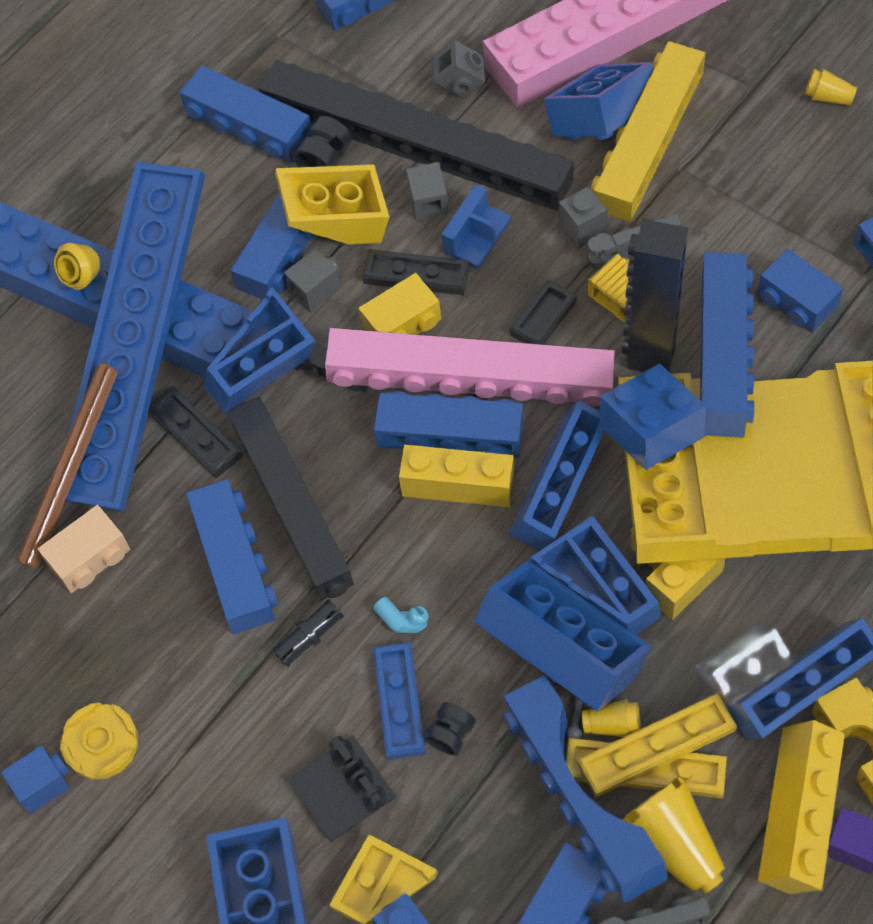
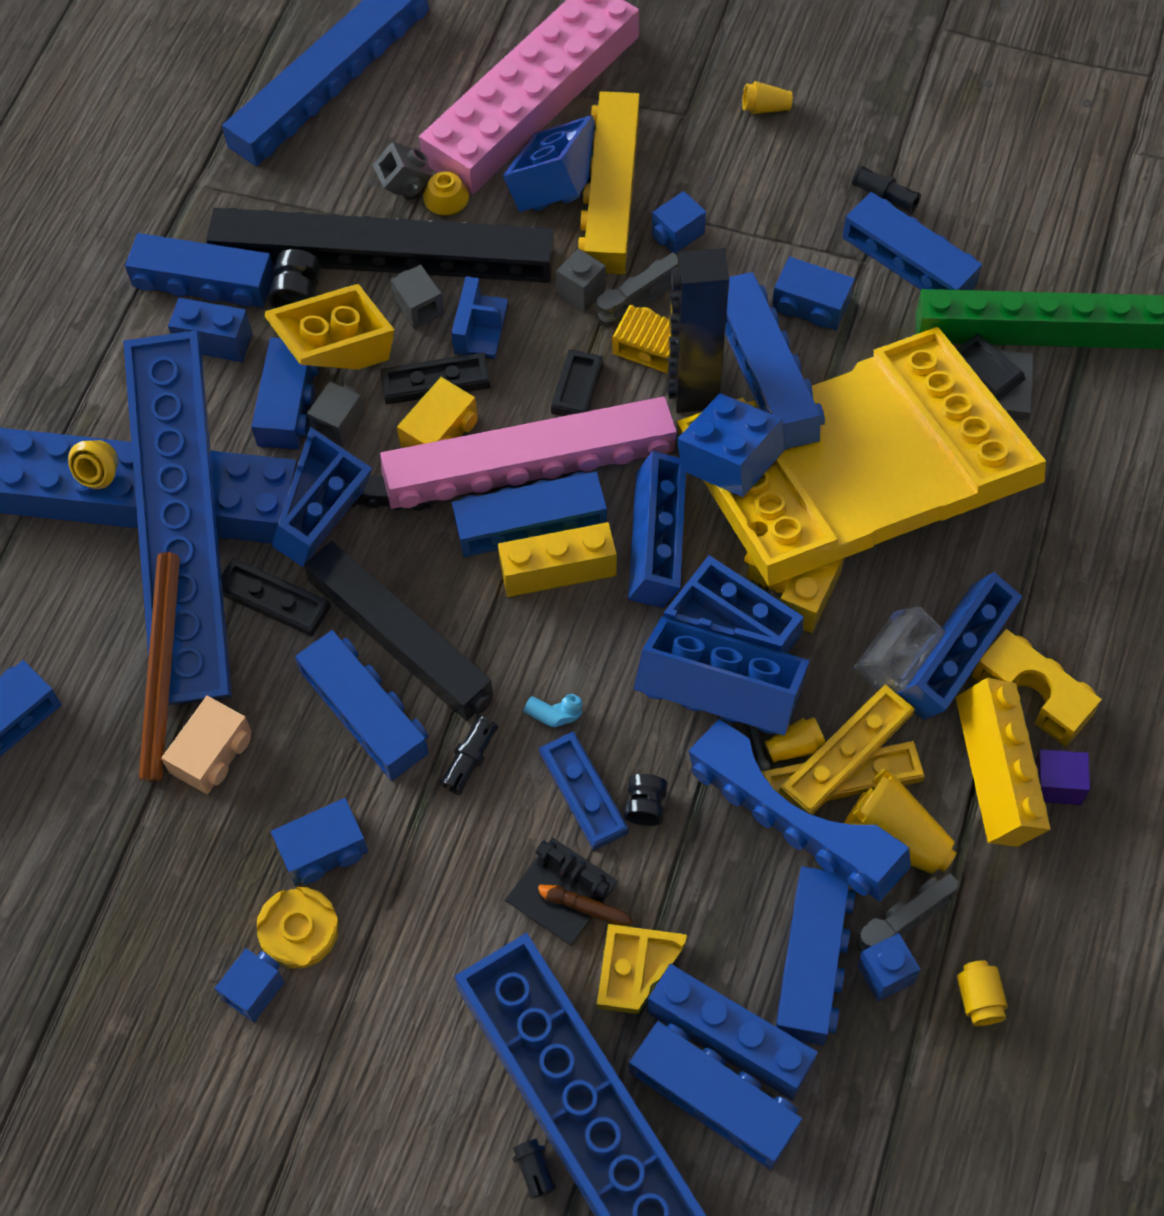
camera: 25 degrees left, 0 degrees up
(145, 670) = (320, 842): none -> blue brick
(233, 171) = (222, 329): none -> blue brick
(335, 791) = (558, 895): none -> reddish brown piece
(492, 101) = (445, 194): none -> yellow cone
(696, 186) = (678, 222): none -> blue brick

